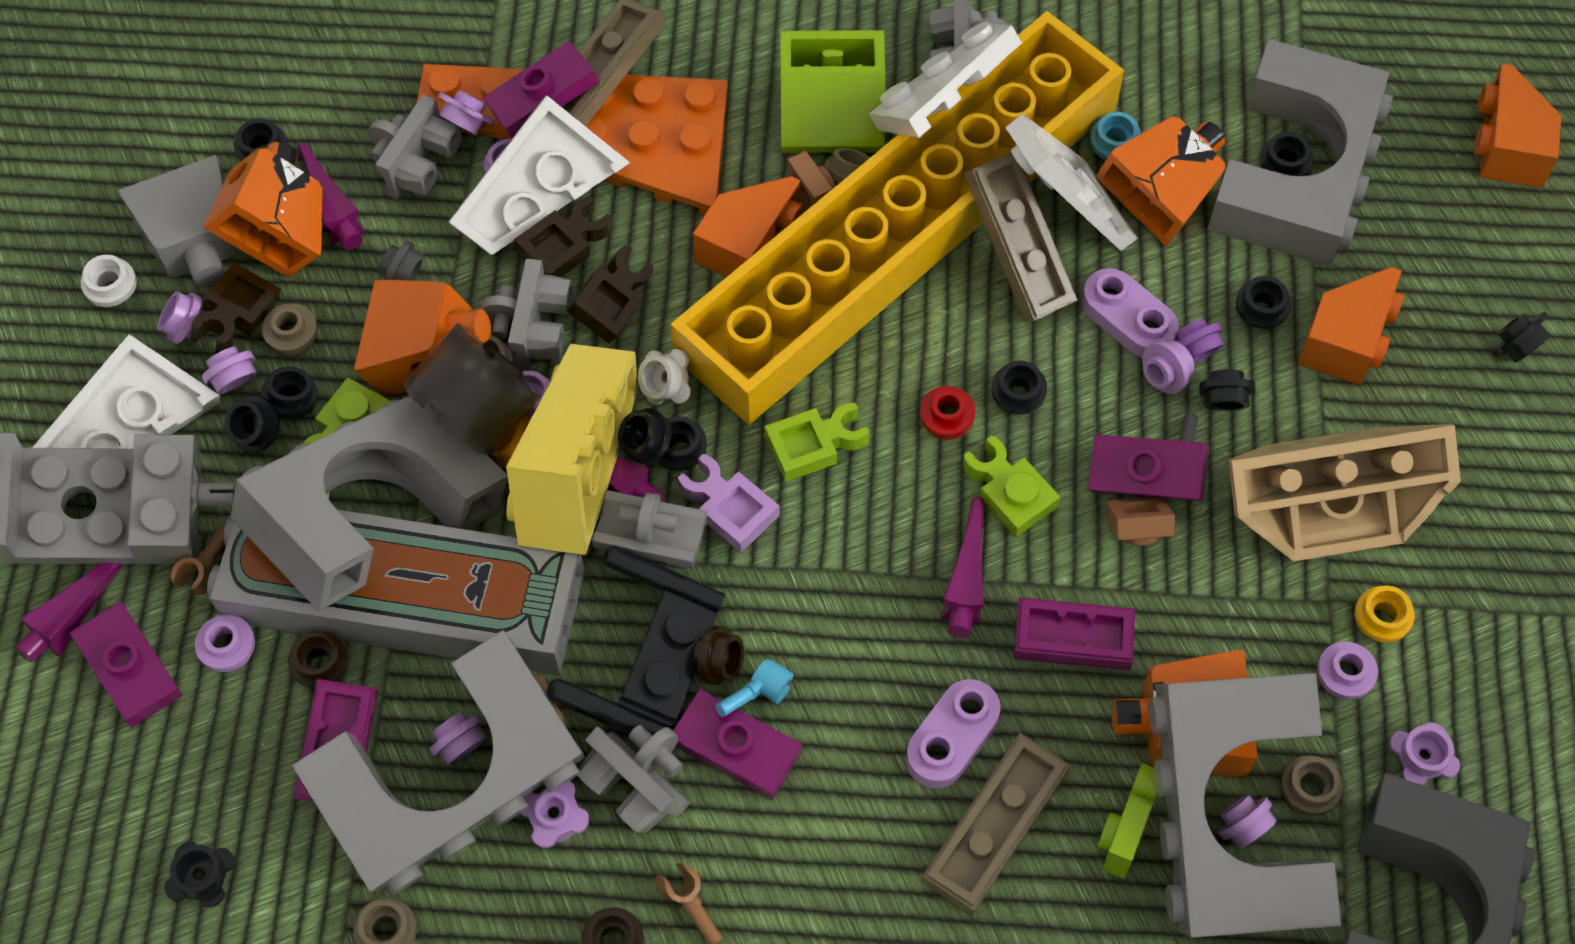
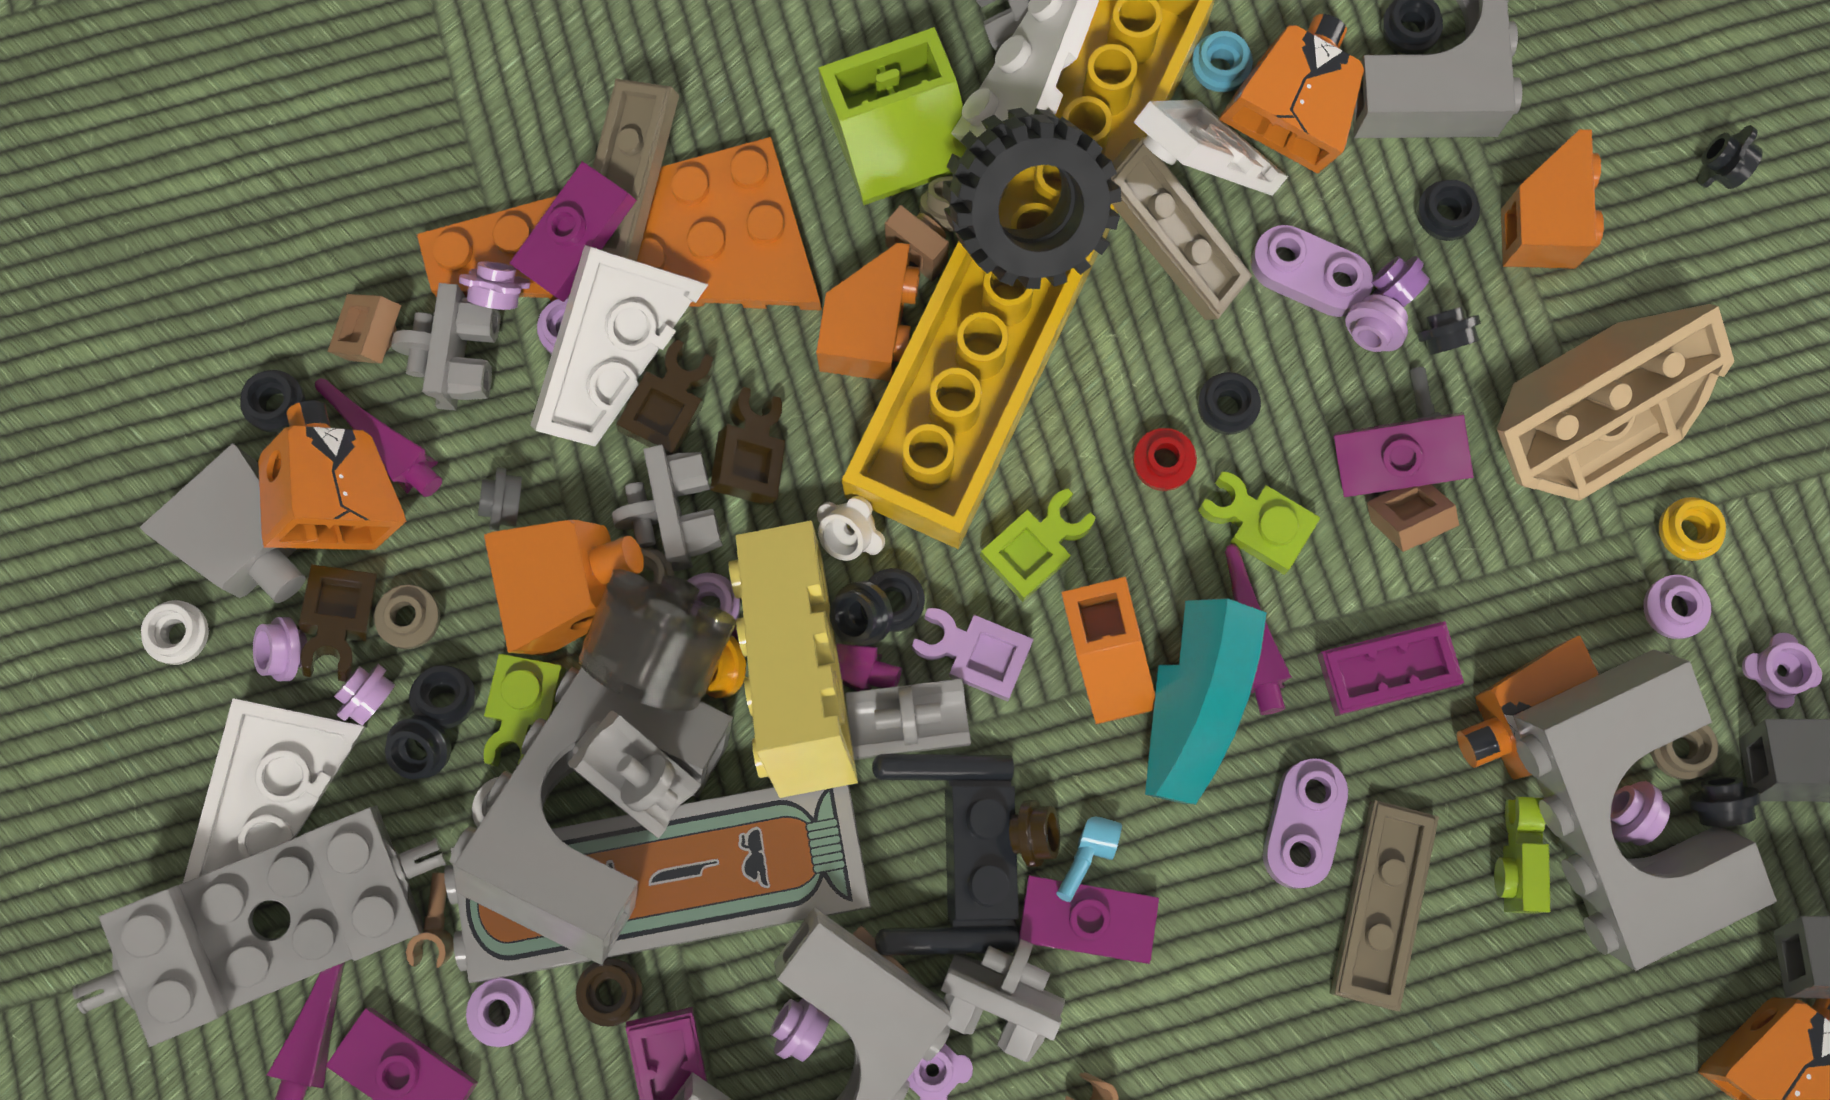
camera: 20 degrees left, 15 degrees up
(353, 115) = (364, 328): none -> medium nougat plate
(408, 477) = (632, 772): none -> light grey hips
(838, 531) = (1109, 650): none -> orange slope
(900, 595) = (1202, 697): none -> teal slope
(948, 162) = (1072, 227): none -> black tyre
(1330, 839) = (1725, 802): none -> black plate

